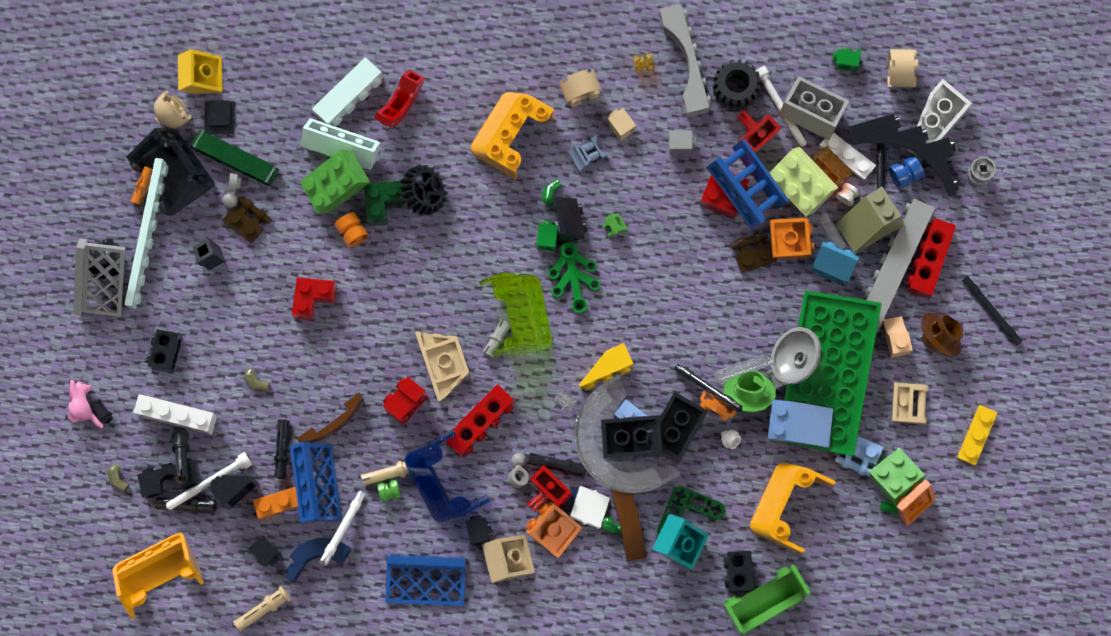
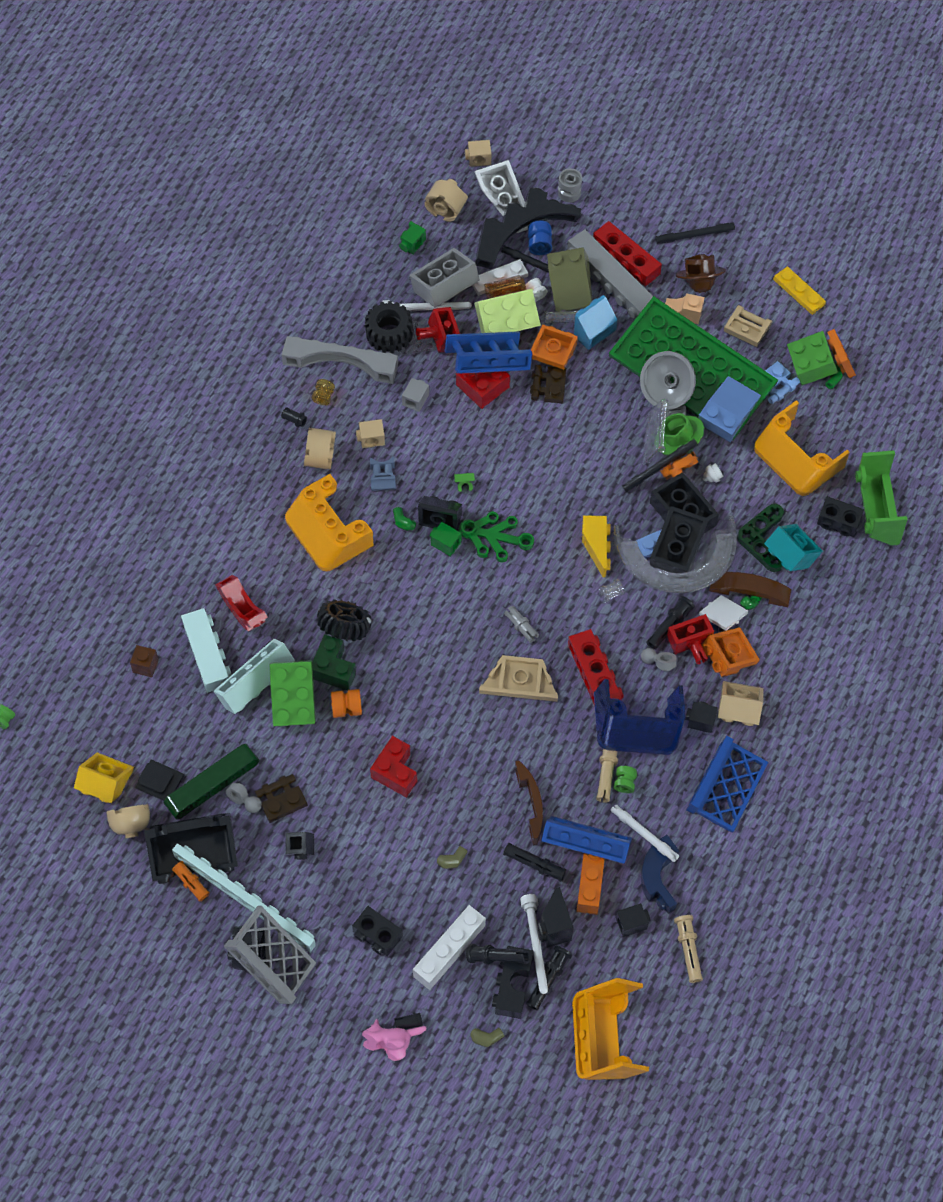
camera: 70 degrees left, 15 degrees down
(313, 50) = (144, 661): none -> reddish brown brick
(405, 400) = (545, 723): red brick -> none
(525, 312) = (509, 589): clear neon green windscreen -> none
(607, 51) = (298, 419): none -> black pin
(975, 72) = (478, 153): none -> tan brick

